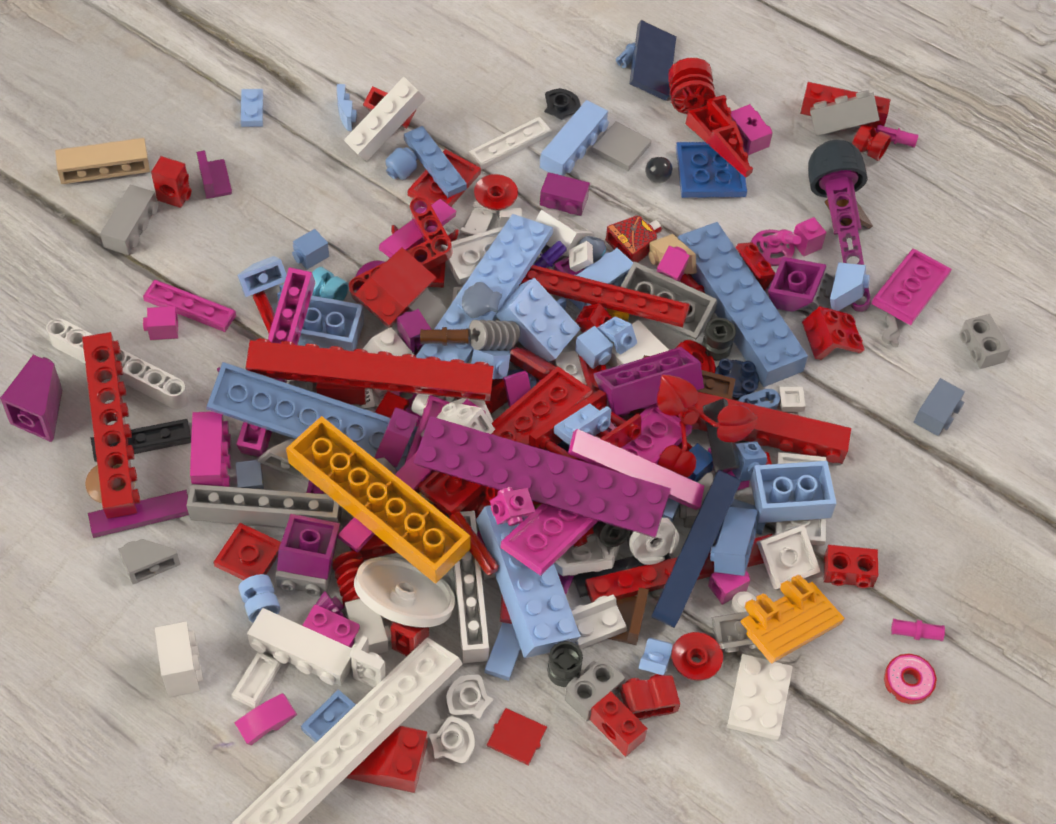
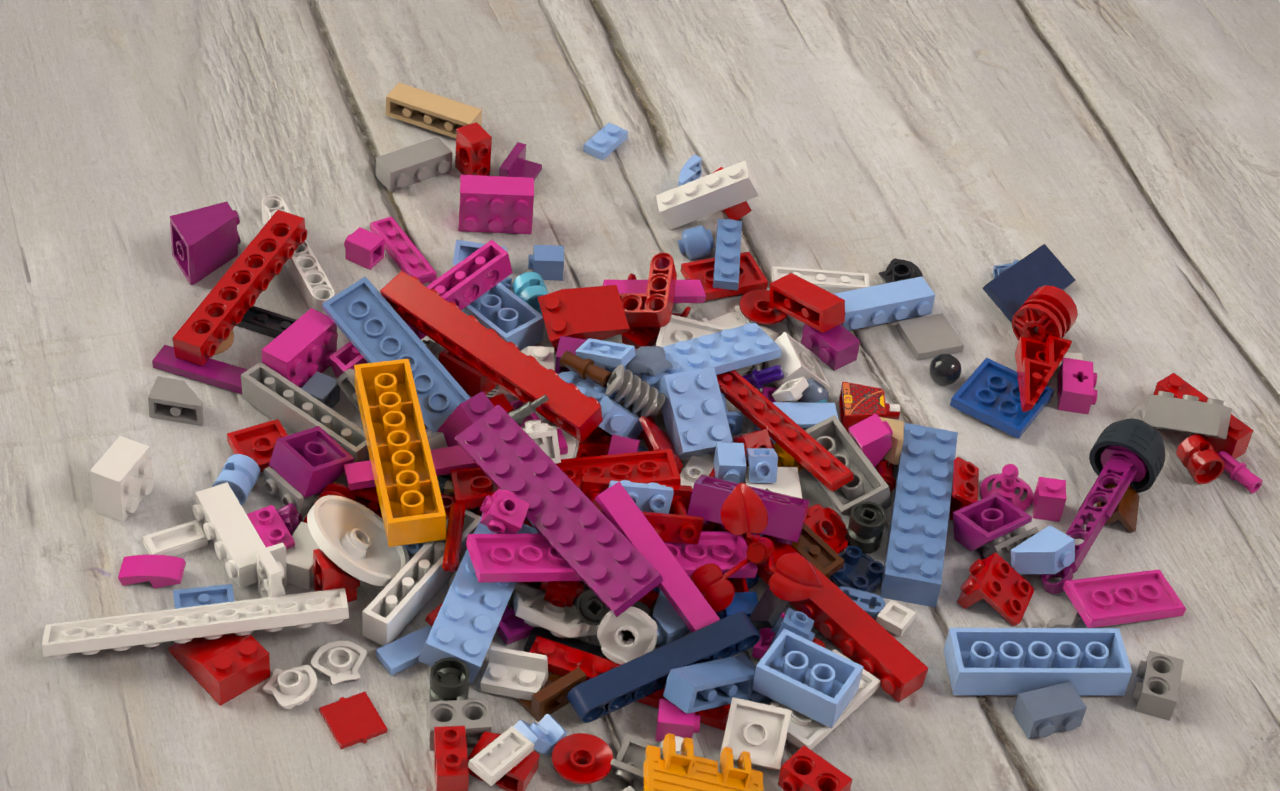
camera: 35 degrees right, 15 degrees down
(231, 221) = (496, 204): none -> dark pink brick
(434, 408) = (530, 407): none -> dark grey hand
(448, 313) = (606, 352): none -> light blue plate
(532, 173) = (807, 302): none -> red brick
(657, 698) = (501, 756): none -> white plate
(905, 375) = (1034, 658): none -> light blue brick

